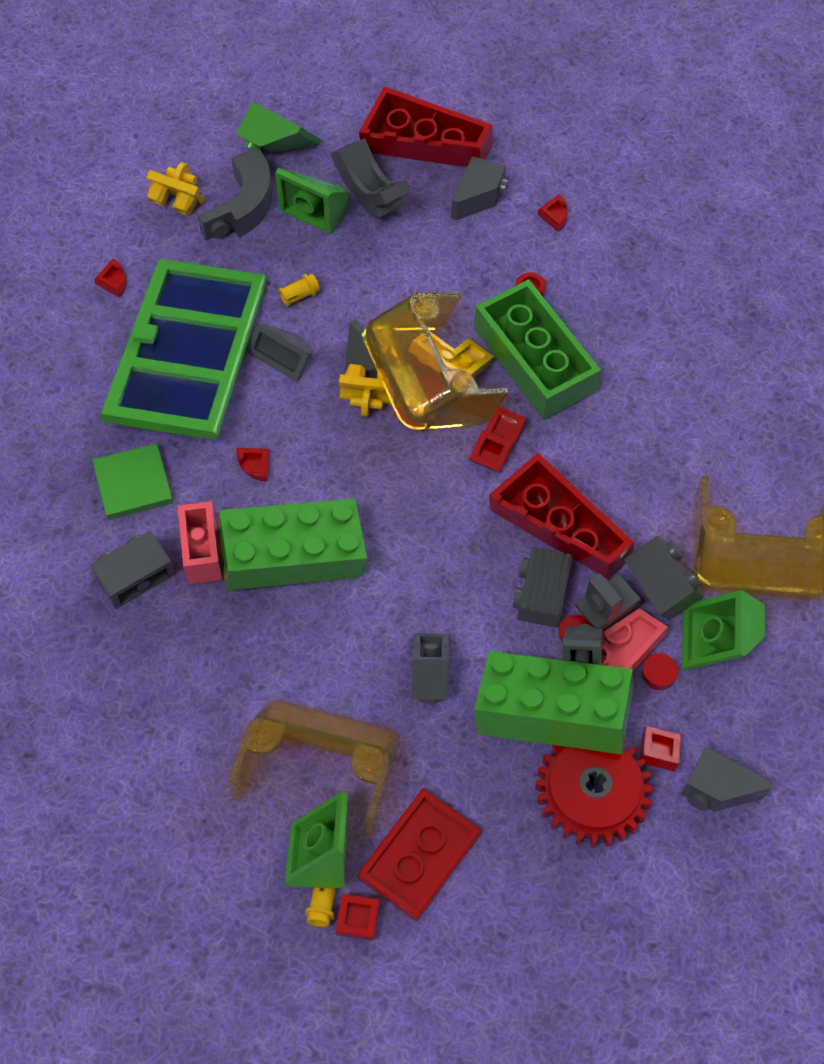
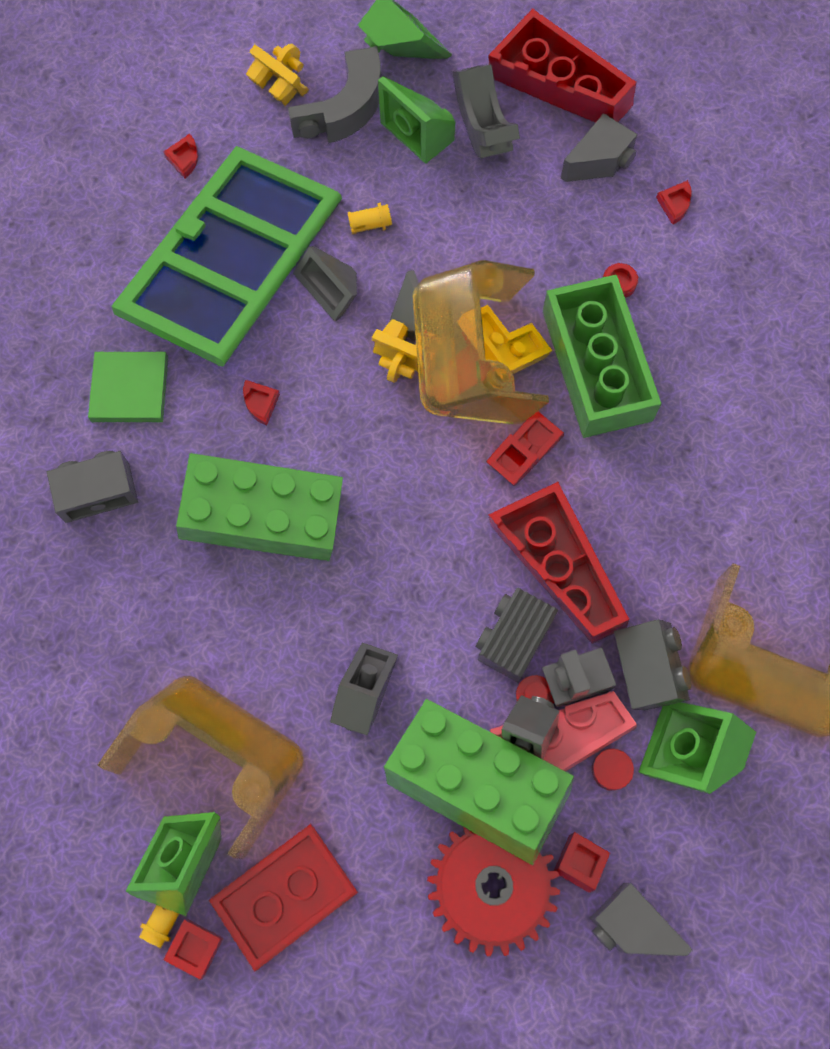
camera: 20 degrees right, 10 degrees up
(199, 543) = (164, 476): coral brick -> none

